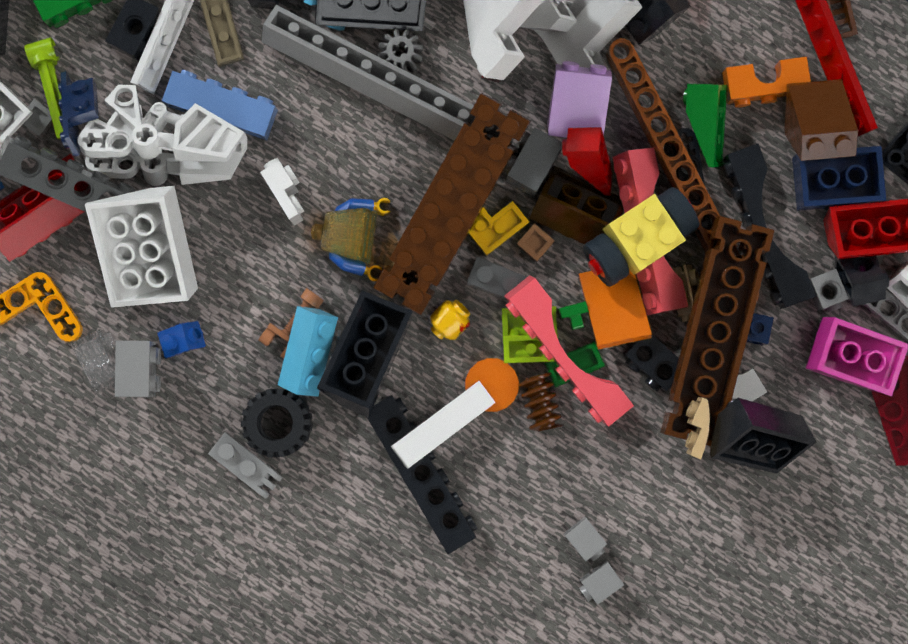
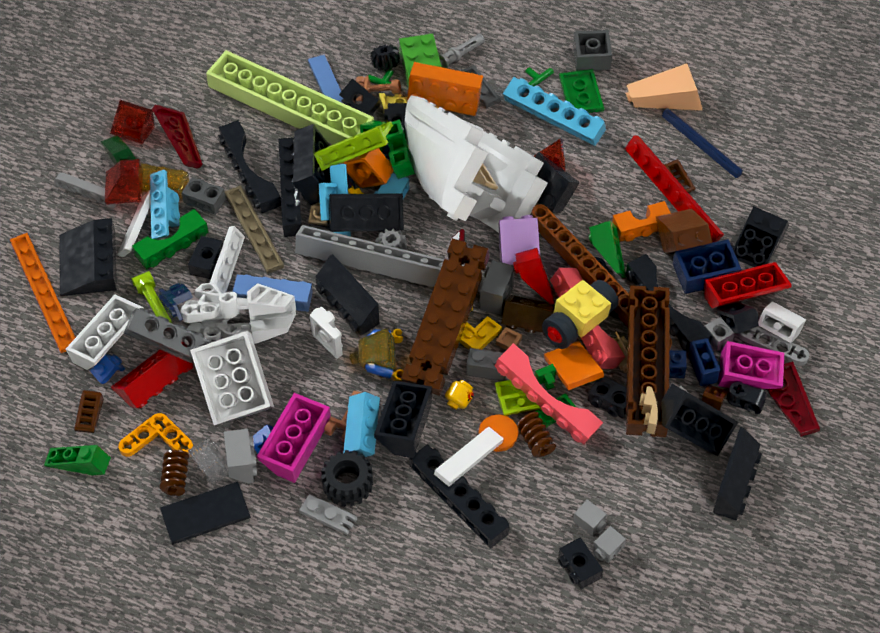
camera: 10 degrees left, 30 degrees down
(50, 369) = (174, 472): none -> reddish brown piece
(85, 432) = (205, 513): none -> black tile
(215, 349) = (294, 437): none -> dark pink slope
(321, 134) = (347, 296): none -> black slope
(569, 614) = (579, 553): none -> black brick
(793, 517) = (737, 476): none -> black slope
(794, 334) = (704, 362): none -> dark blue brick
(795, 387) = (714, 396): none -> reddish brown slope
(842, 397) = (747, 397): none -> black piece

